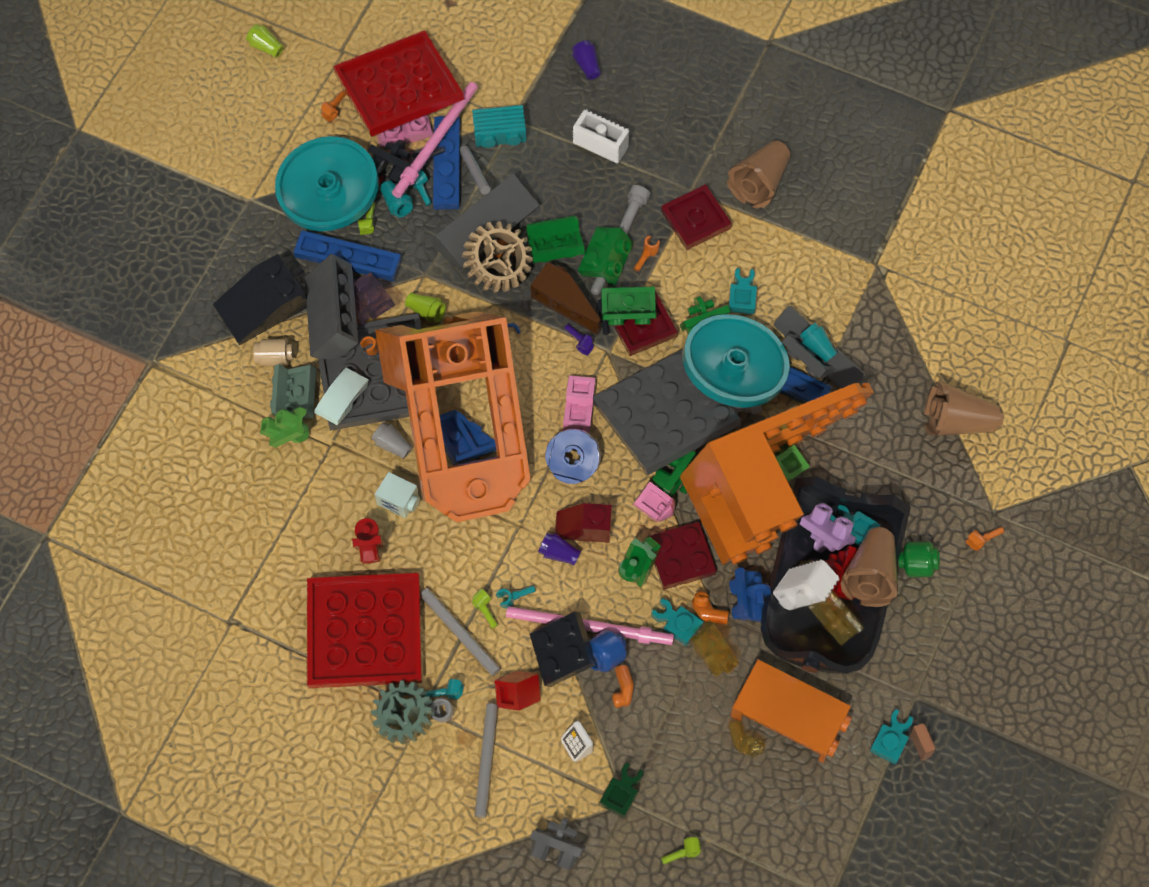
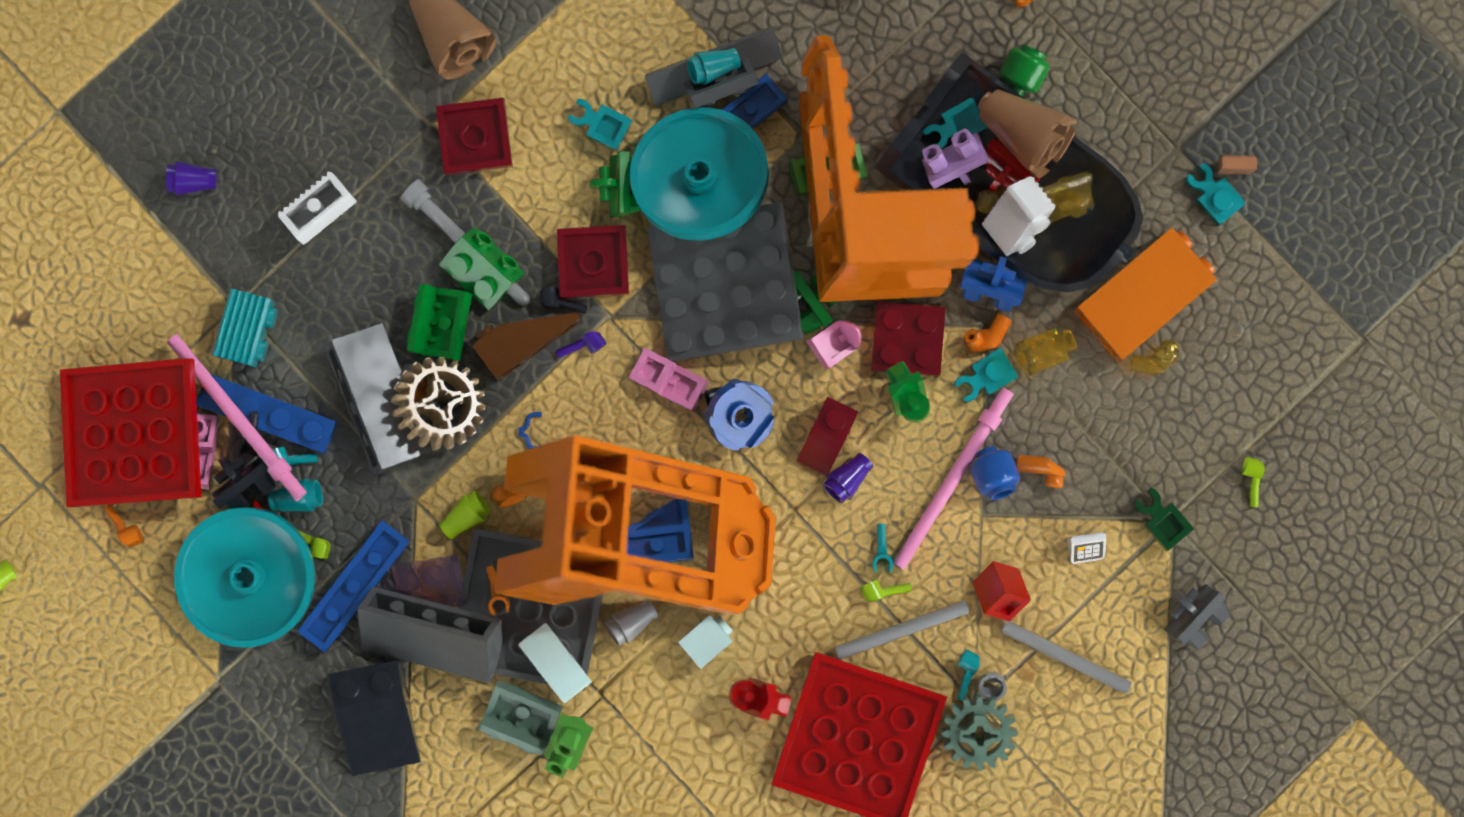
camera: 70 degrees left, 20 degrees up
(273, 352) = (454, 724): tan brick -> none
(475, 170) = (301, 384): light grey bar -> none
(562, 649) = (976, 521): black plate -> none
(628, 304) = (574, 271): green bracket -> none
(648, 250) = (498, 218): orange hand -> none

